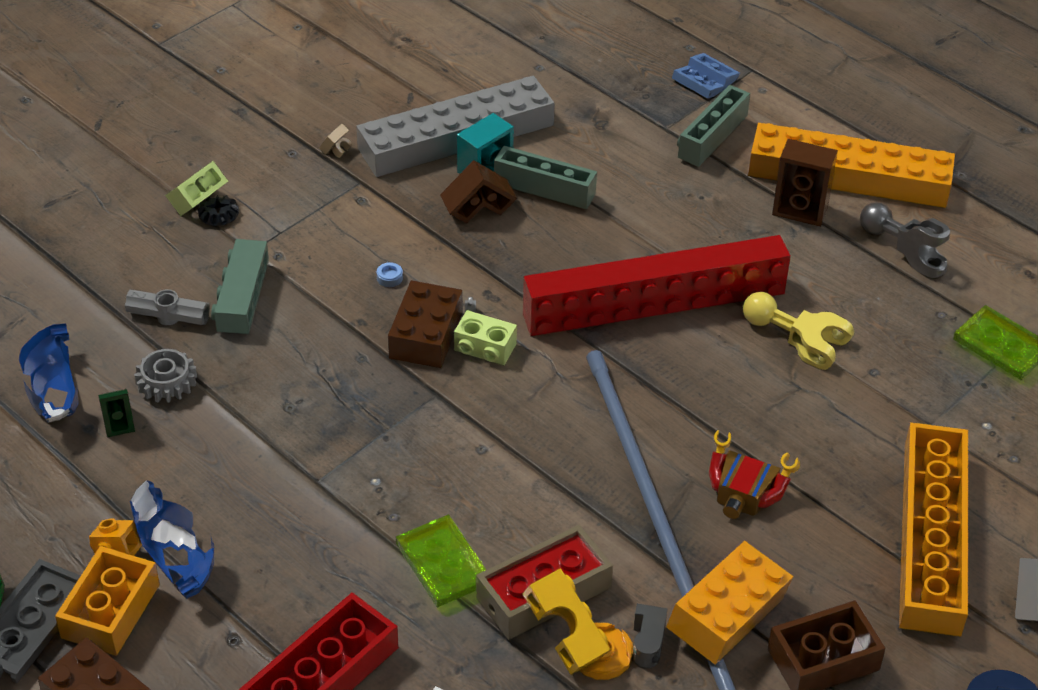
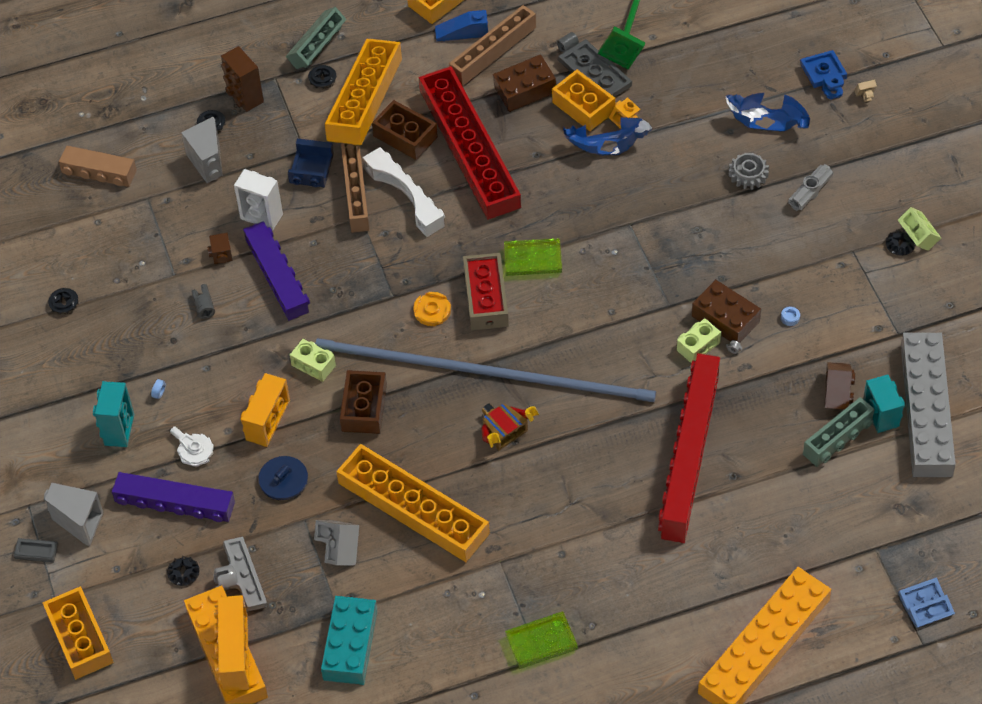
camera: 120 degrees right, 10 degrees up
(116, 412) = (728, 136): dark green slope -> none
(240, 286) = (809, 227): sand green brick -> none
(336, 140) = (944, 326): tan tile -> none
(557, 596) = (459, 276): yellow arch -> none
(648, 643) = (426, 331): dark grey leg -> none
(713, 125) = (849, 566): sand green brick -> none
(729, 602) = (418, 368): light orange brick -> none
(804, 182) = (742, 578): reddish brown brick -> none
(807, 332) = (612, 523): light yellow piece -> none
(915, 239) = (659, 630): flat silver piece -> none

